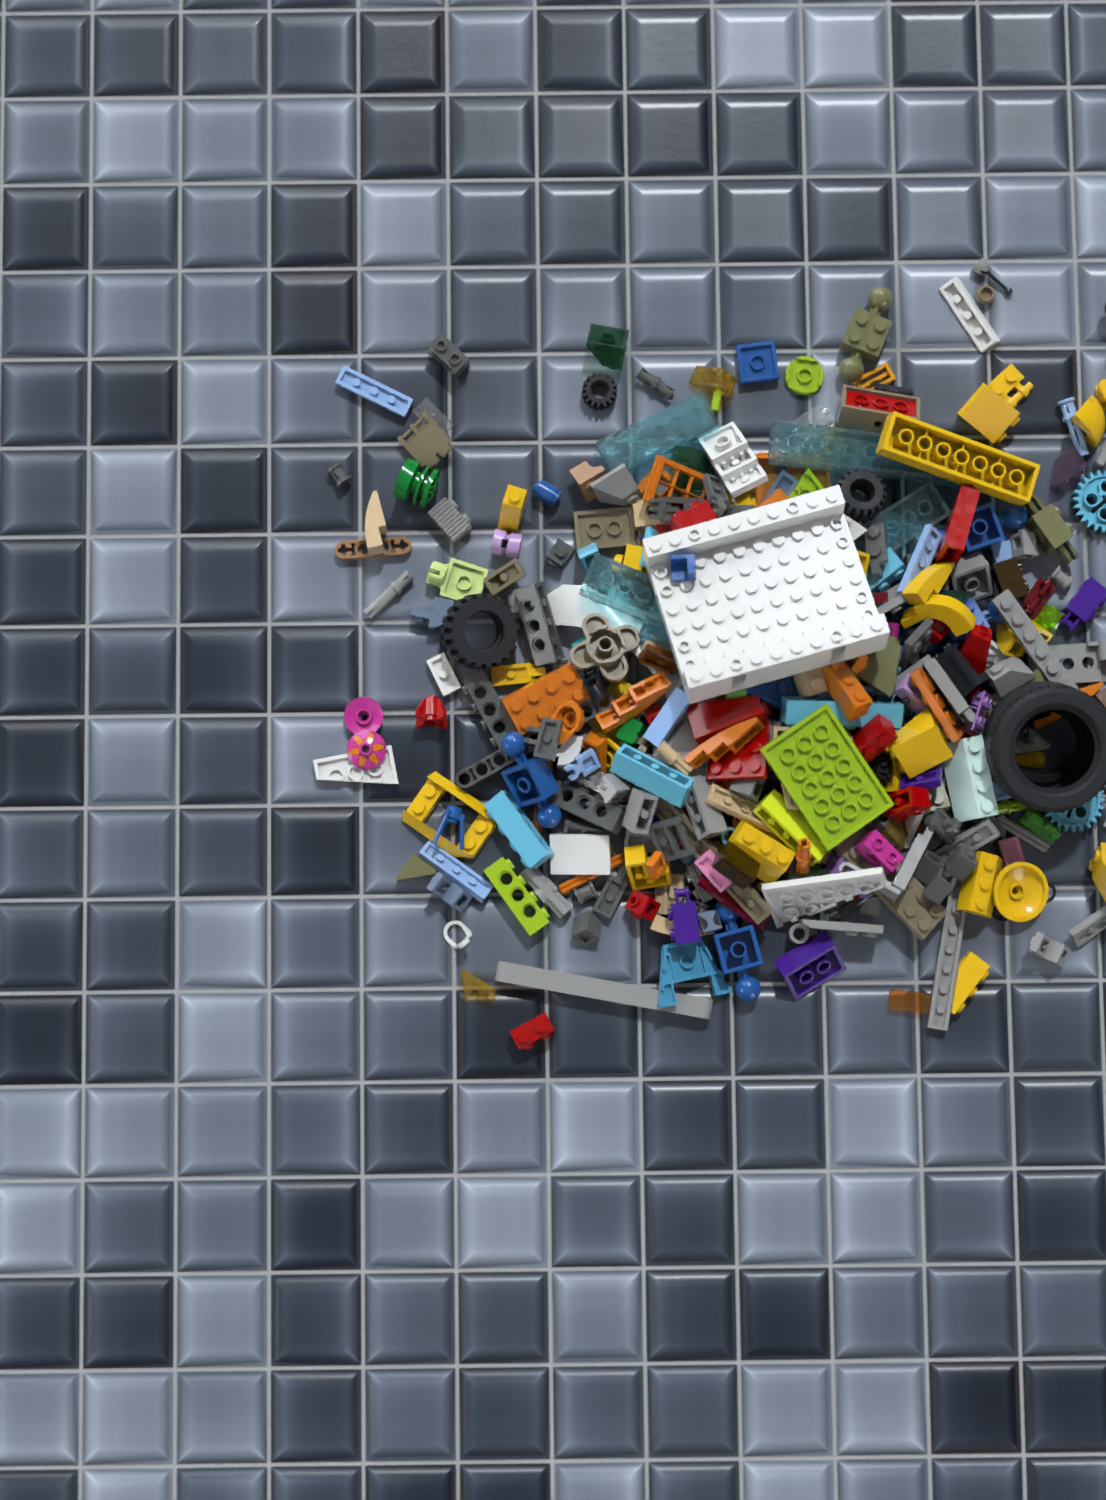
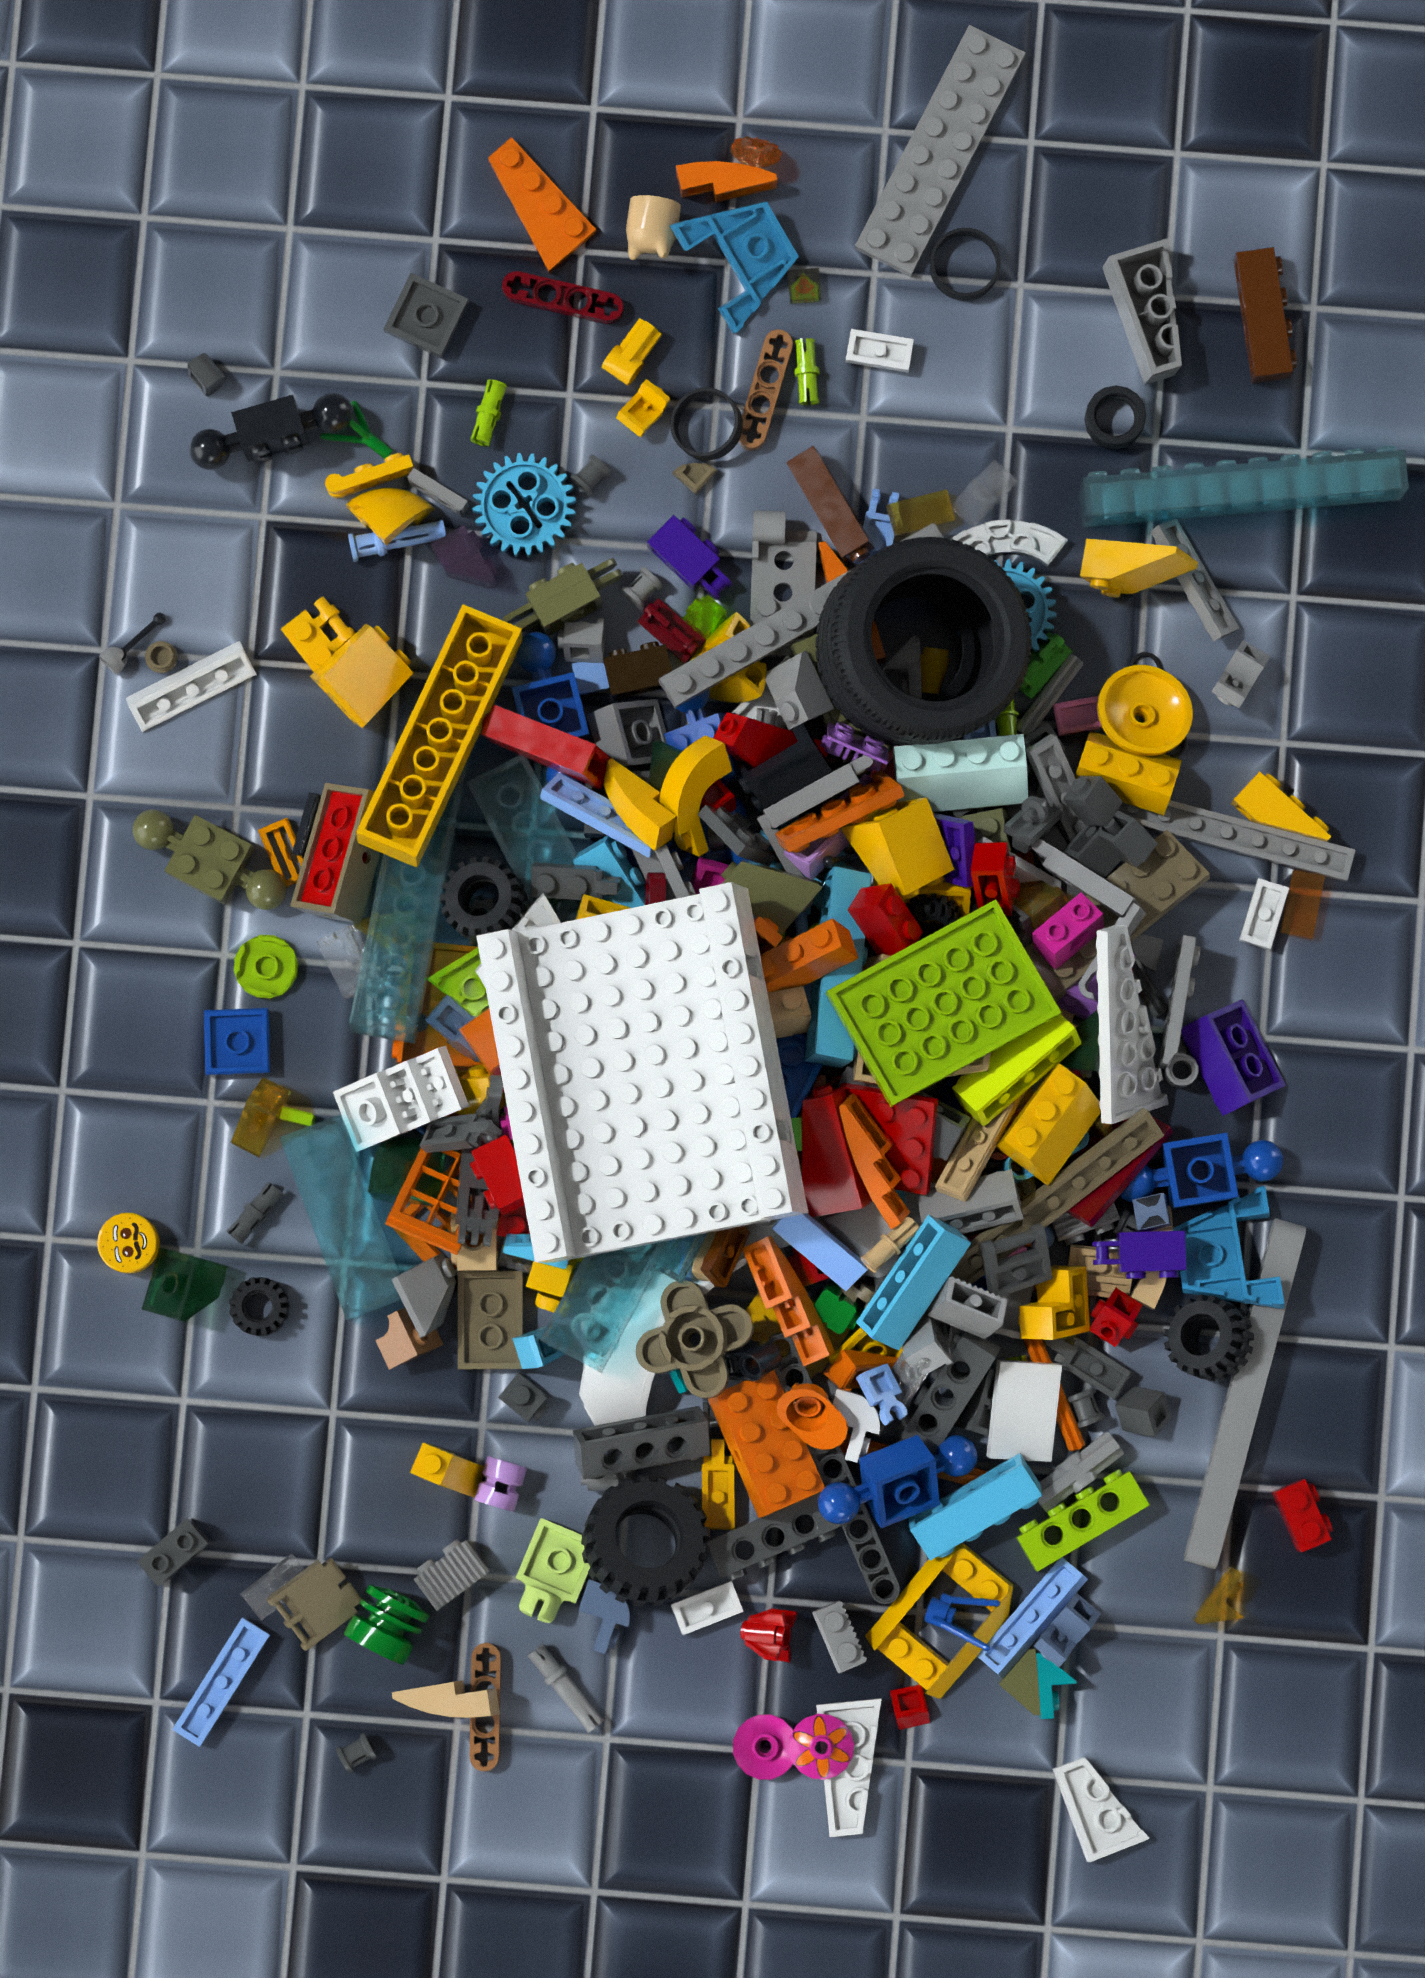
camera: 80 degrees left, 0 degrees up
(341, 919) = (1095, 1812): none -> white wing
(395, 802) = (910, 1706): none -> red slope
(419, 882) = (1050, 1675): none -> teal slope
(433, 755) = (839, 1636): none -> light grey brick
(466, 940) = (1148, 1610): white piece -> none
(505, 577) = (557, 1492): dark tan slope -> none
(546, 492) = (421, 1410): blue brick -> none
(547, 740) = (836, 1446): dark grey hinge -> none
(630, 311) = (128, 1243): none -> yellow head
(633, 977) = (1185, 1331): none -> black tyre
(656, 865) = (1056, 1289): orange plate -> none
(683, 567) = (587, 1200): blue panel -> none
(705, 863) = (1073, 1195): bright pink tile -> none
(736, 865) = (1070, 1161): dark brown brick -> none
(803, 856) = (1065, 1052): orange pin -> none
(900, 977) = (1263, 914): none -> white plate

